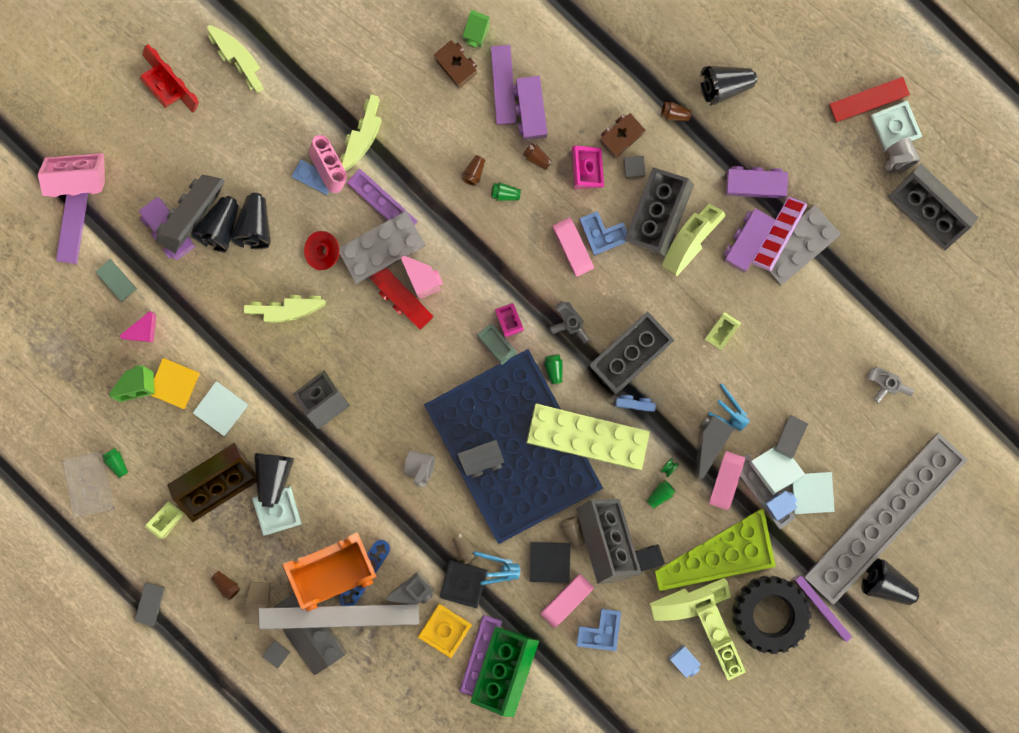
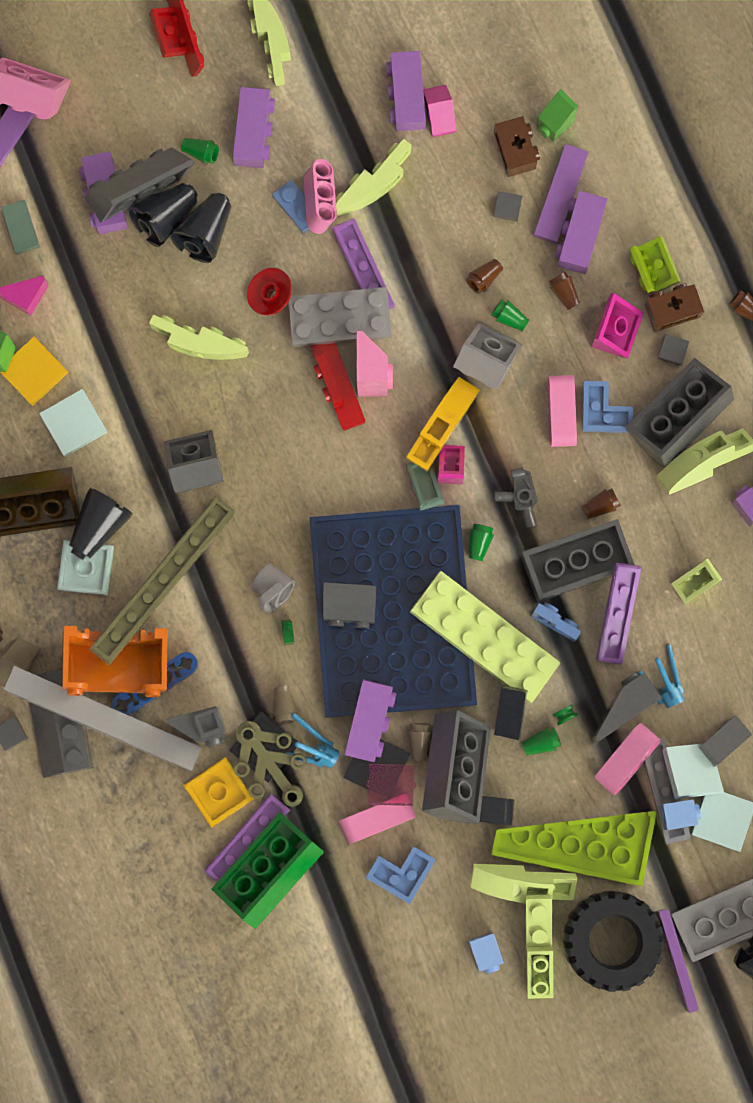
camera: 30 degrees right, 5 degrees down
(224, 165) = (200, 149): none -> green cone
(255, 132) = (253, 127): none -> medium lavender brick
(337, 498) = (161, 581): none -> olive tile
(357, 56) = (406, 91): none -> medium lavender brick
(387, 60) = (440, 110): none -> slope
(444, 494) = (287, 630): none -> green tile
(468, 111) = (508, 206): none -> dark grey tile
(470, 593) = (268, 760): none -> olive plant
(490, 294) = (442, 423): none -> yellow slope
(501, 229) = (487, 355): none -> light grey slope
(532, 534) = (370, 721): none -> medium lavender brick
(566, 572) = (391, 784): none -> clear pink piece
(594, 110) = (654, 265): none -> lime bracket
(629, 483) = (510, 712): none -> black tile
(631, 302) = (601, 504): none -> reddish brown cone
(676, 378) = (618, 613): none -> medium lavender tile

